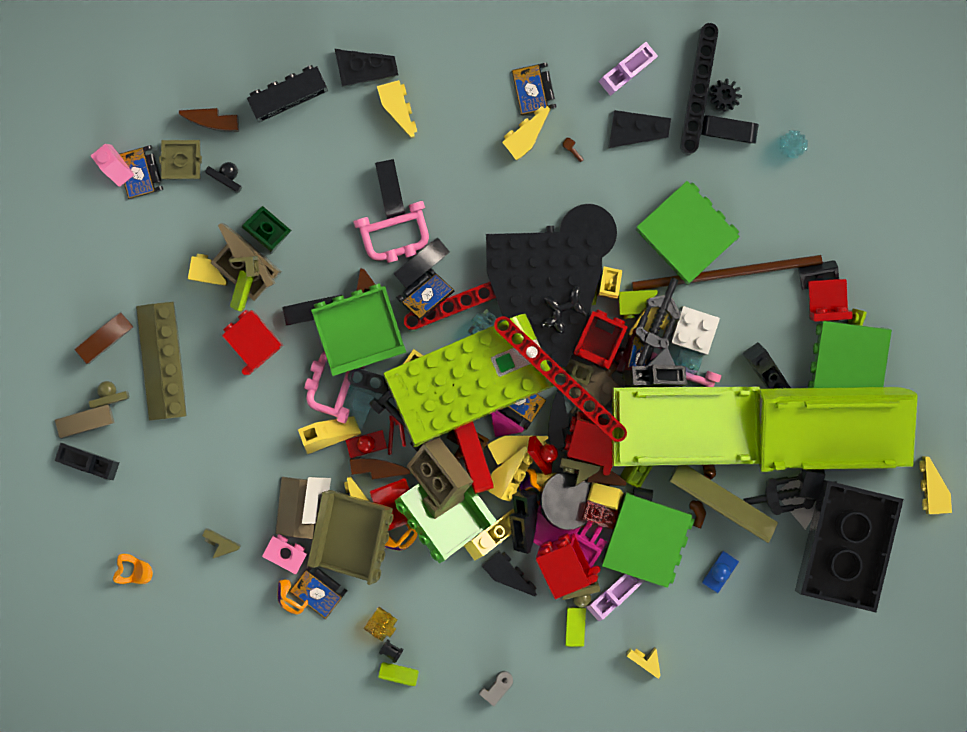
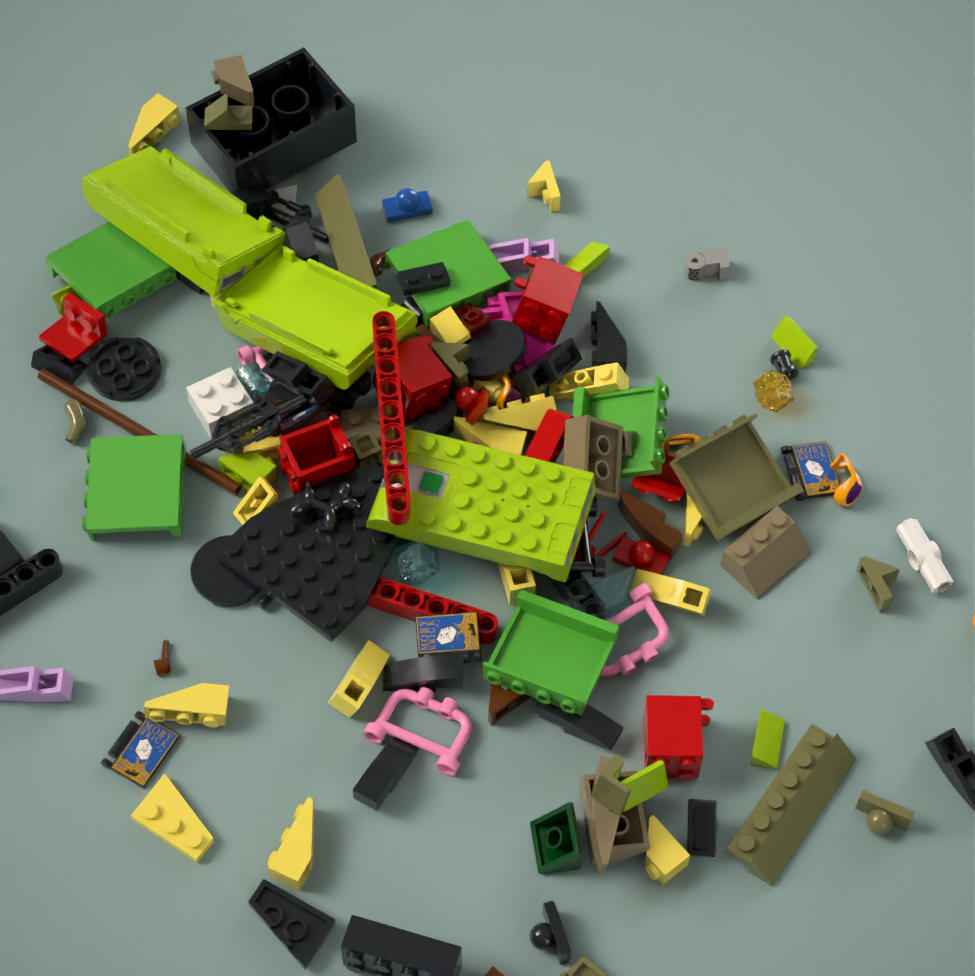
camera: 140 degrees left, 30 degrees down
(84, 421) = (932, 810): dark tan slope -> none
(104, 338) = (839, 876): reddish brown slope -> none
(195, 301) = (702, 827): none -> black tile
(204, 389) = (767, 740): none -> lime slope
(208, 585) = (924, 555): none -> white piece
(273, 553) = (817, 509): bright pink brick -> none
(313, 496) = (742, 532): white sticker -> none
(452, 229) = (359, 679): none -> light yellow slope
(477, 65) = (173, 821): none -> light yellow wing
(637, 128) = (81, 625): black wing -> none
(650, 515) = (423, 278): none -> black plate
(750, 477) = (300, 240): none -> black slope
(765, 367) = (191, 322): black slope -> none
(768, 248) = (77, 419): none -> olive arm
(777, 306) = (124, 368): none -> black tile
(868, 513) = (225, 117): none -> olive slope
(890, 542) = (233, 79): none -> dark tan slope

